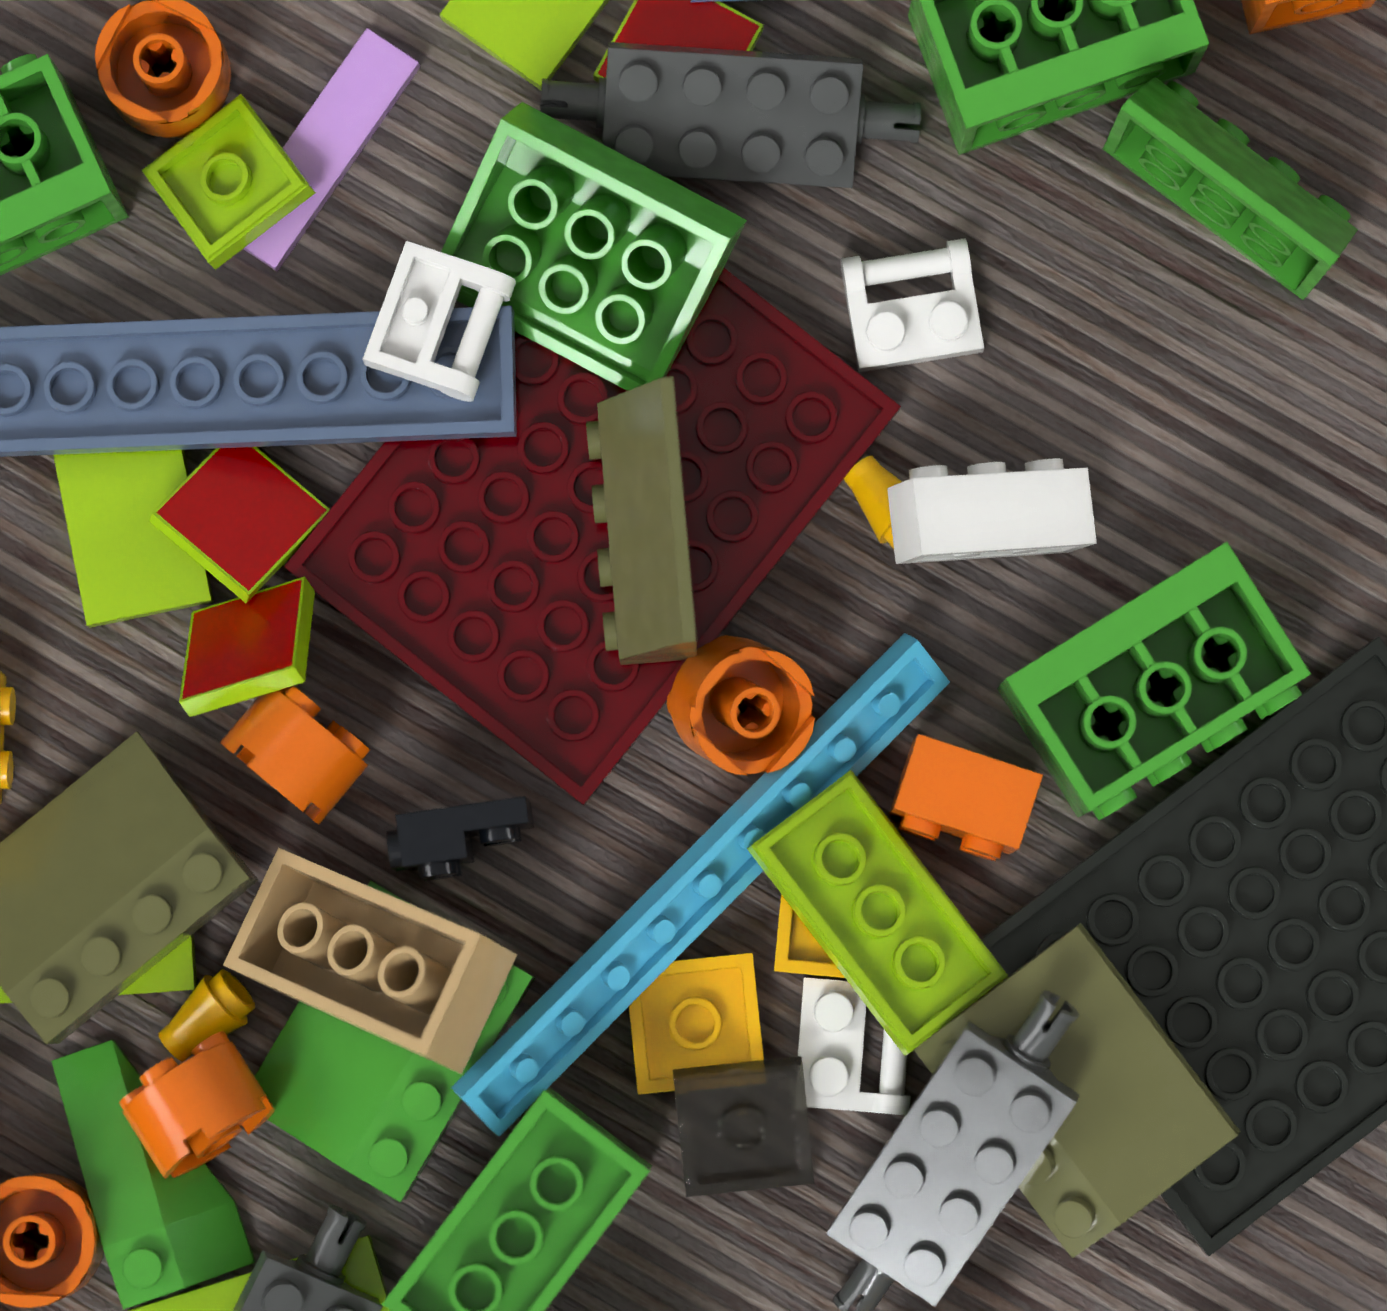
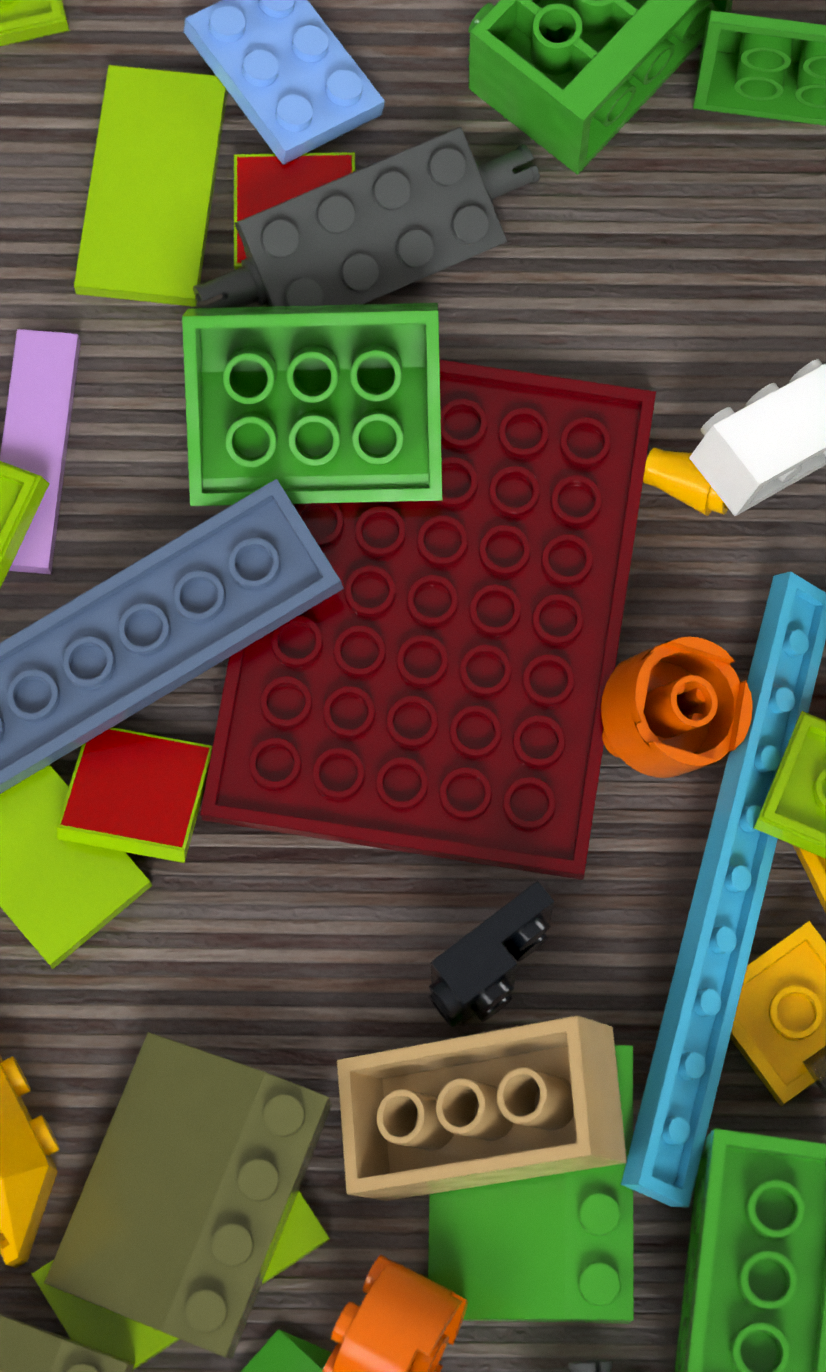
camera: 30 degrees left, 10 degrees down
(212, 1007) = (352, 1249): yellow cone -> none
(247, 647) = (209, 898): red tile -> none
(297, 752) = (304, 963): orange brick -> none
(418, 315) = (200, 524): white plate -> none
(645, 525) = (508, 589): olive slope -> none
(914, 326) = (624, 327): white plate -> none

